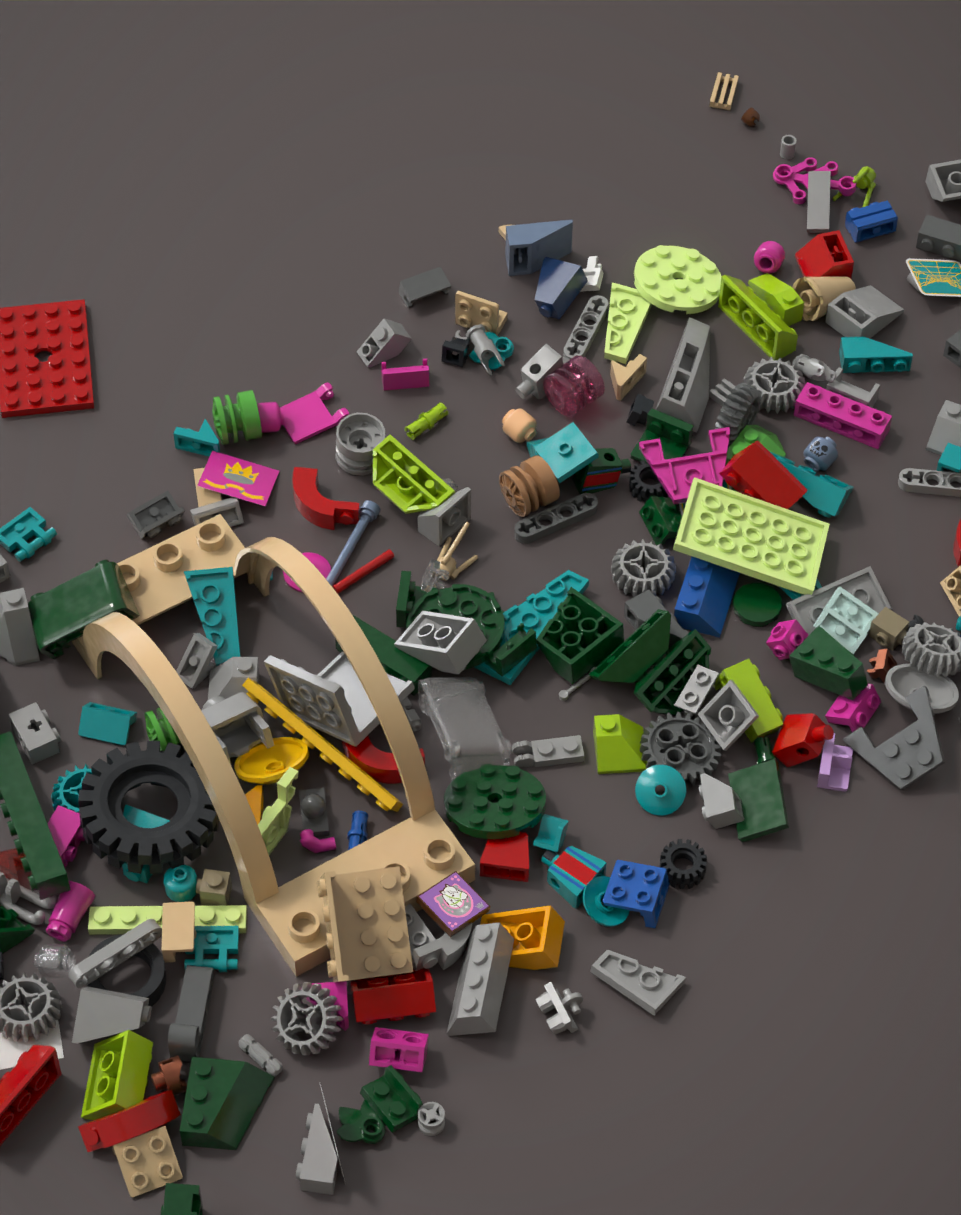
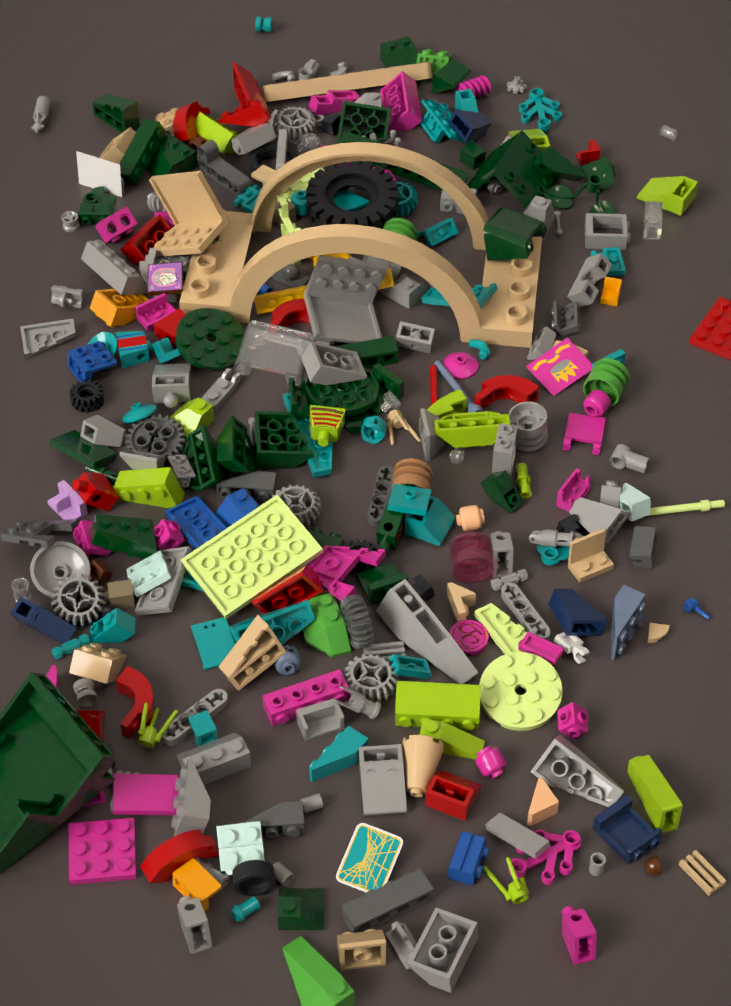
camera: 130 degrees right, 5 degrees down
(75, 1050) = (251, 115): none -> red slope
(77, 500) = (611, 291): none -> light orange panel
(106, 518) = (583, 289): none -> light grey arch
(247, 1175) = (117, 147): none -> tan slope
(248, 1117) = (141, 150): none -> dark green brick
(311, 622) = (415, 337): none -> light grey brick
(321, 360) = (623, 457): none -> light grey piece
(326, 277) = (703, 505): none -> yellowish green bar
(383, 307) = (635, 502): none -> light aqua slope
(398, 535) = (449, 404): none -> lime slope
(410, 422) = (505, 449): none -> light grey window
(426, 326) = (597, 515): none -> light grey slope
(459, 226) = (692, 604): none -> blue hand
(459, 424) = (502, 491): none -> dark green slope
(479, 570) = (375, 426): none -> teal piece
(502, 893) = (153, 311): none -> dark pink bracket
(523, 601) = (326, 423): none -> lime torso
(584, 799) = (171, 384): none -> light grey slope
(621, 286) = (541, 647): none -> dark pink tile
(657, 349) = (470, 636): none -> dark pink tile
(673, 227) = (572, 720): none -> dark pink brick
(690, 140) = (655, 793): none -> lime slope
(717, 206) = (574, 772): none -> light grey wedge
(734, 362) = (411, 666): none -> teal tile
(737, 146) = (626, 830): none -> dark blue panel
(746, 625) = (196, 521): none -> blue tile
(773, 206) = (543, 804): none -> light nougat slope
(854, 465) = (251, 654): none -> tan wedge
(856, 525) = (213, 642): none -> teal container
(864, 118) = (578, 926): none -> dark pink torso
(930, 603) = (113, 628): none -> teal slope
(933, 348) = (312, 803): none -> light grey hinge

